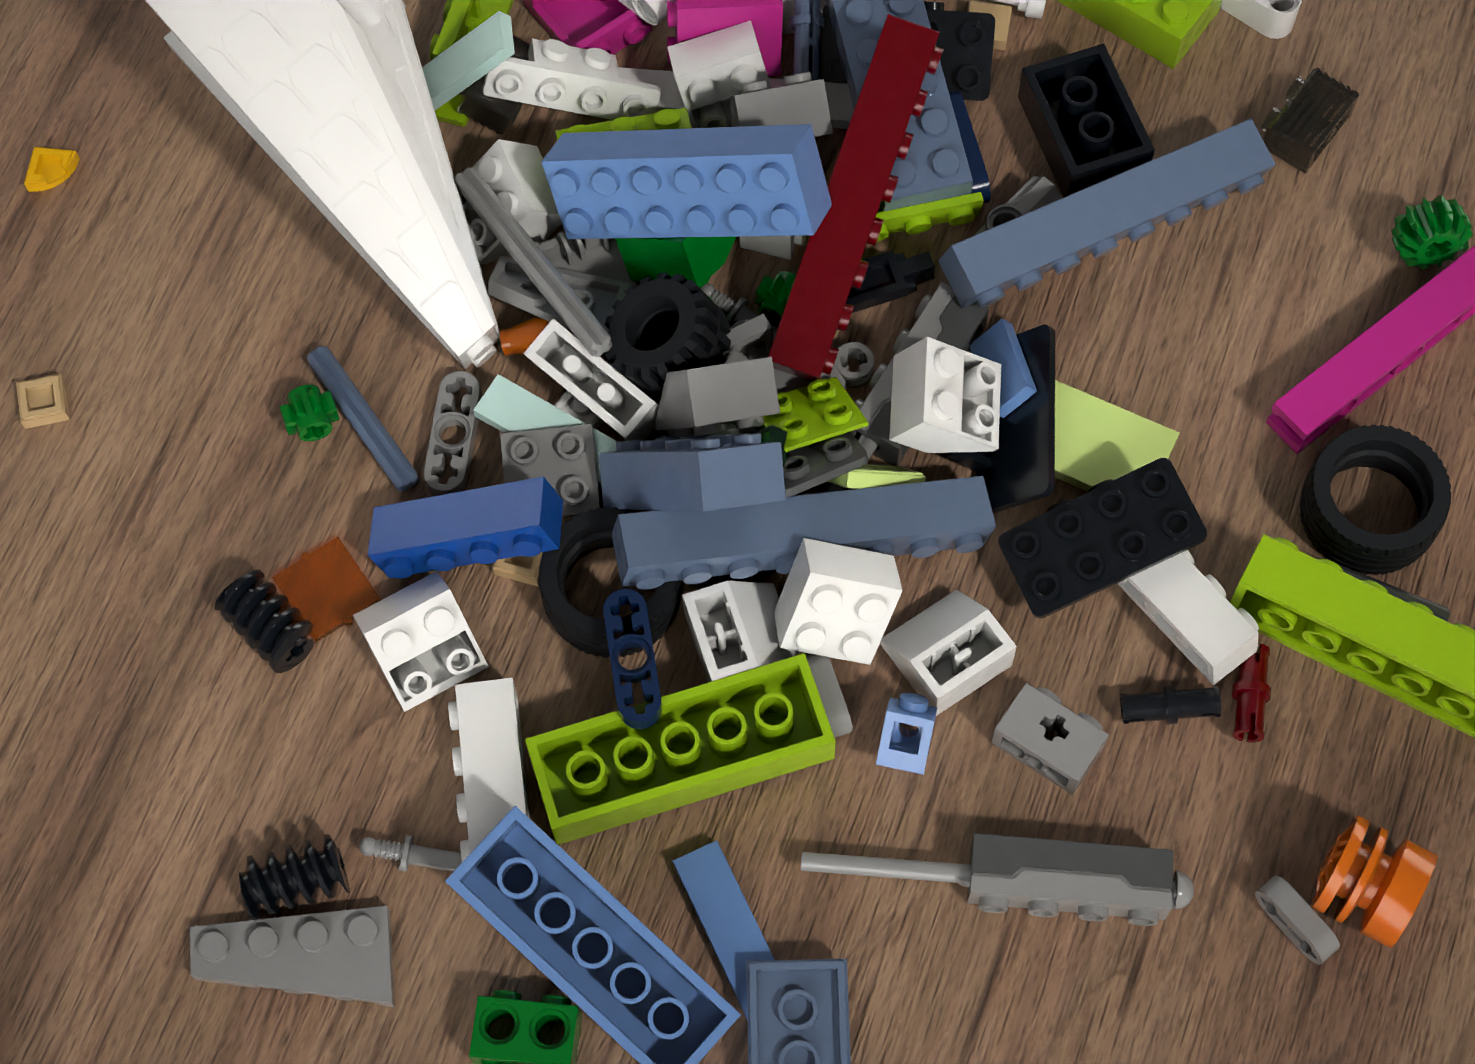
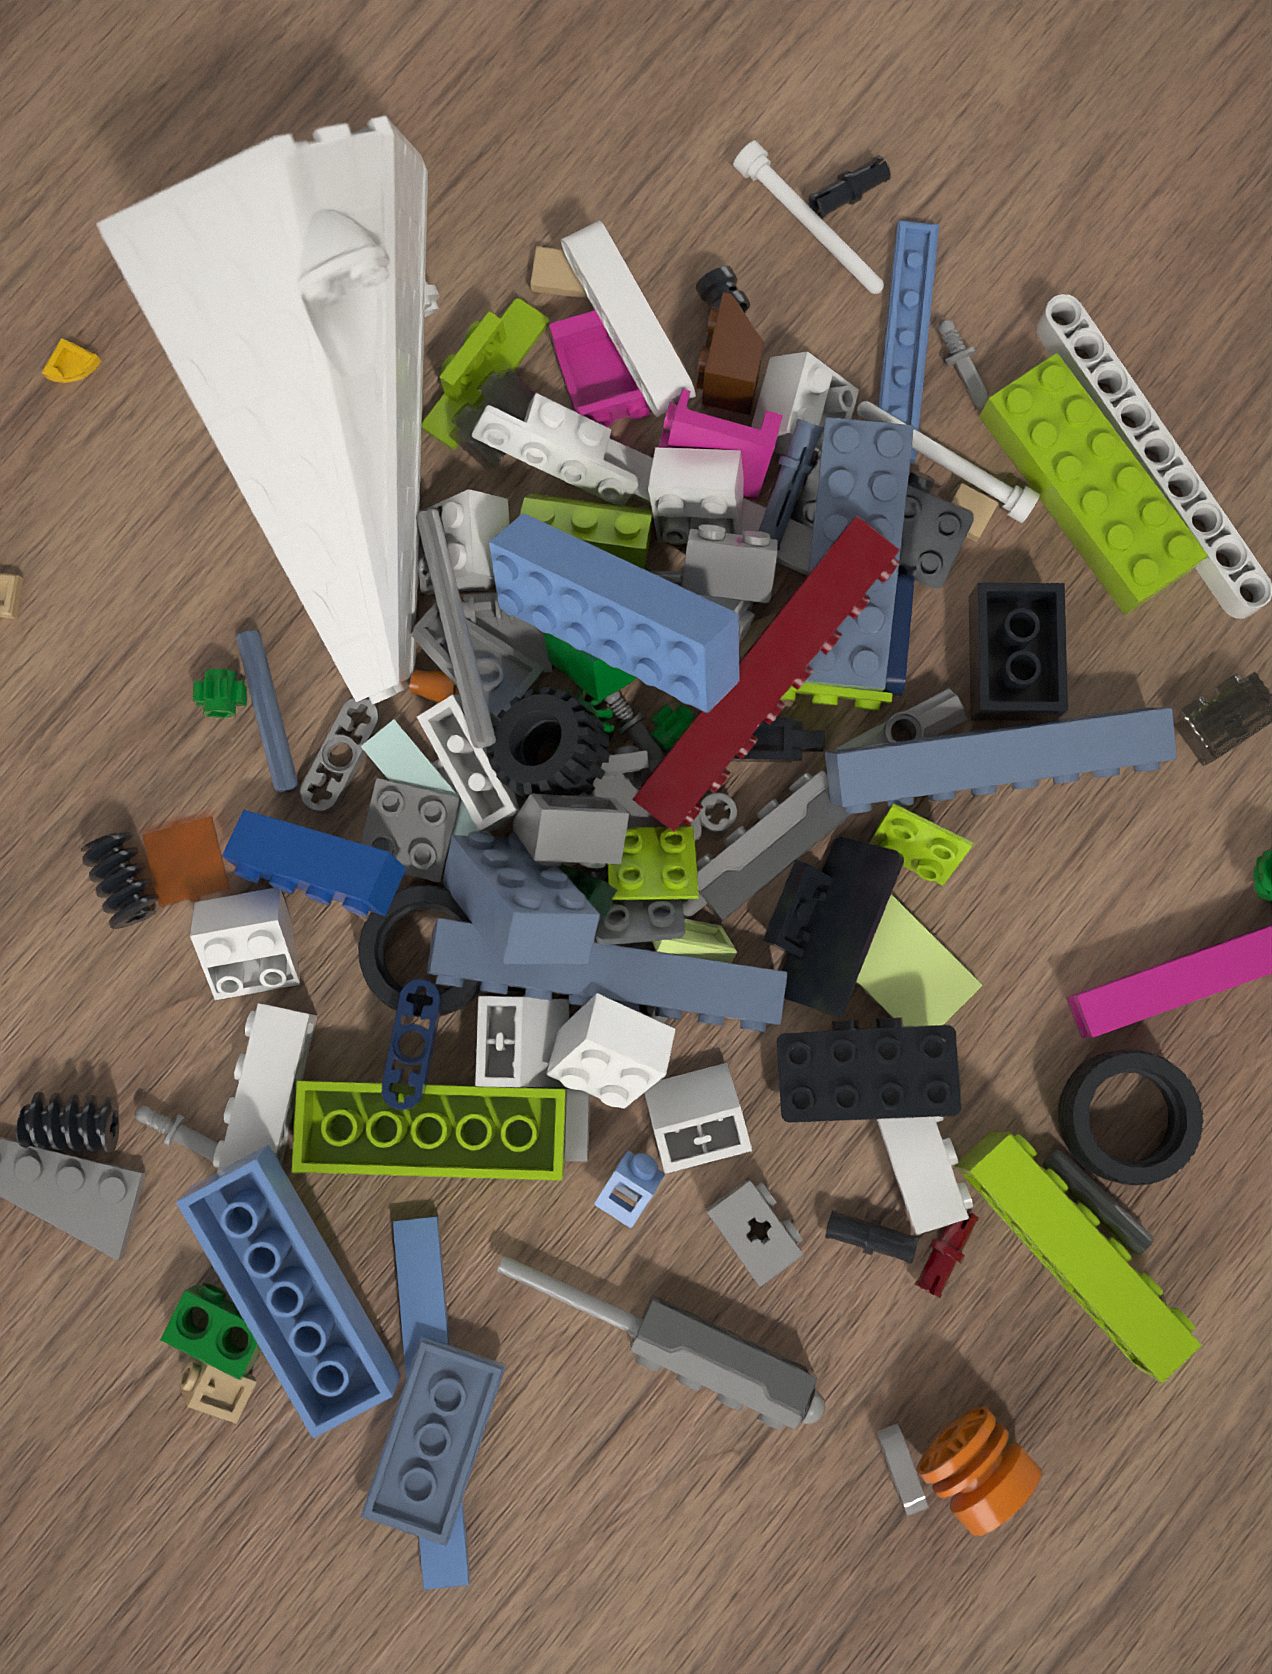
camera: 20 degrees right, 15 degrees up
(469, 59) = (465, 401): light aqua tile -> none
(944, 399) = (778, 895): white slope -> none
(1003, 347) = (845, 873): medium blue tile -> none
(1073, 310) = (925, 845): none -> lime hinge

